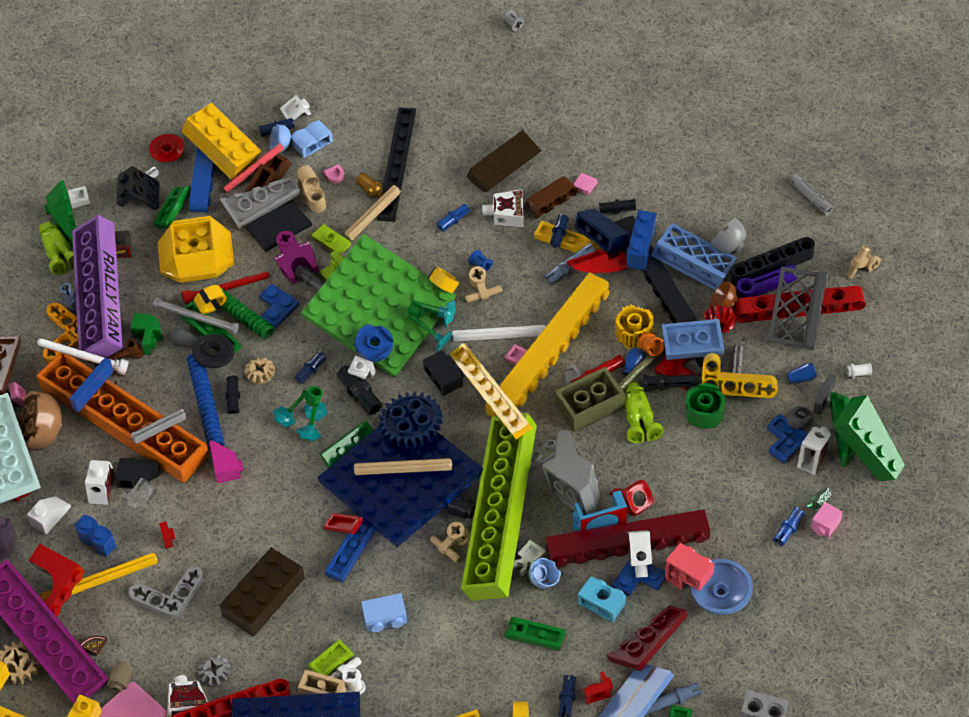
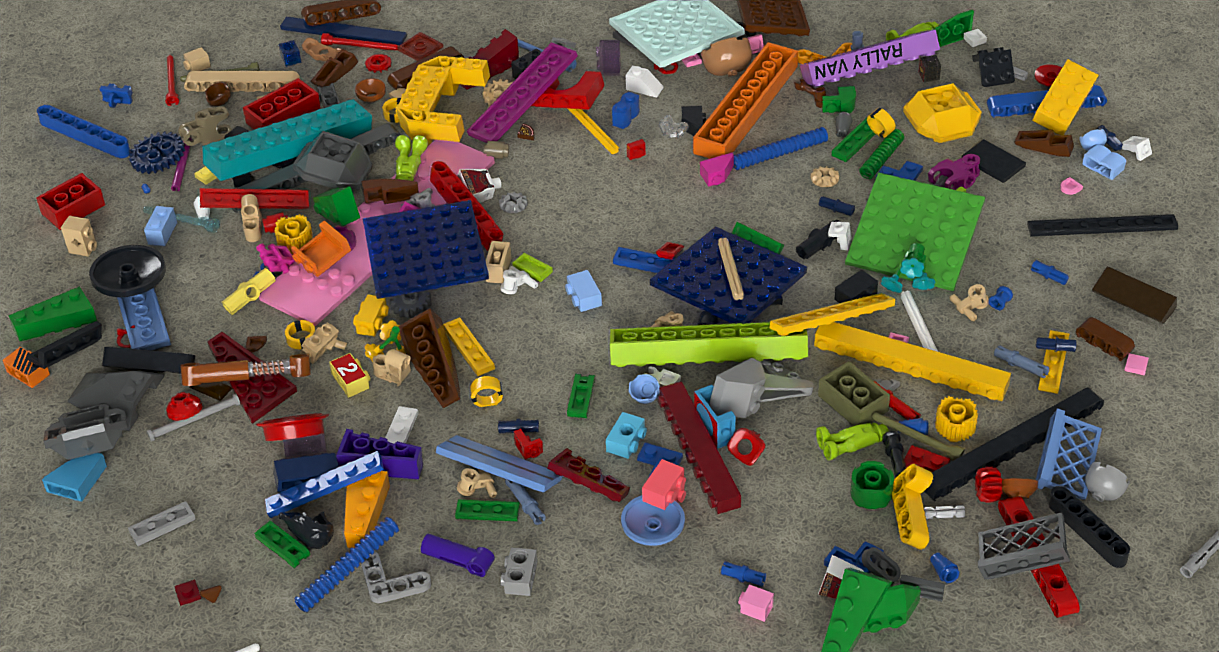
camera: 80 degrees right, 10 degrees down
(91, 384) = (762, 68): blue tile -> none
(99, 475) = (675, 97): white torso -> none
(118, 365) = (801, 92): white piece -> none
(158, 303) = (860, 147): light grey bar -> none
(158, 426) = (733, 114): light grey axle -> none
(172, 206) = (985, 91): green plate -> none
(172, 600) = (577, 167): light grey beam -> none
(188, 296) = (915, 145): red piece -> none
(219, 342) = (838, 134): black wheel -> none
(232, 395) = (791, 163): black pin -> none
(250, 170) = (1059, 131): coral bar -> none
(255, 203) = (1012, 140): light grey wing -> none
(262, 591) = (590, 212): dark brown brick -> none
(311, 189) = (1040, 169): tan piece -> none
(314, 411) = (776, 199): teal plant -> none
(331, 239) = (992, 194): lime plate -> none
(369, 185) = (1064, 208): pearl gold piece -> none
(372, 212) = (1030, 214): tan axle -> none
(373, 333) = (869, 238): blue plate -> none
(398, 427) = (783, 264): dark blue gear -> none
(443, 279) = (955, 271): yellow piece -> none
(506, 208) = (1075, 307): white torso -> none
(599, 262) = (1028, 380): red slope -> none
(601, 231) = (1069, 376): dark blue brick -> none
(617, 206) = (1115, 391): black pin -> none
(637, 542) = (675, 443): white torso -> none
(641, 240) = (1075, 401): blue brick -> none
(651, 344) = (932, 428): orange wheel -> none
(692, 339) = (948, 460): medium blue plate -> none
(763, 284) = (1041, 506): dark purple piece -> none
(819, 499) = (782, 595): clear green tile -> none
(858, 370) = (964, 614): white pin -> none
(863, 259) = (1121, 606): tan piece -> none

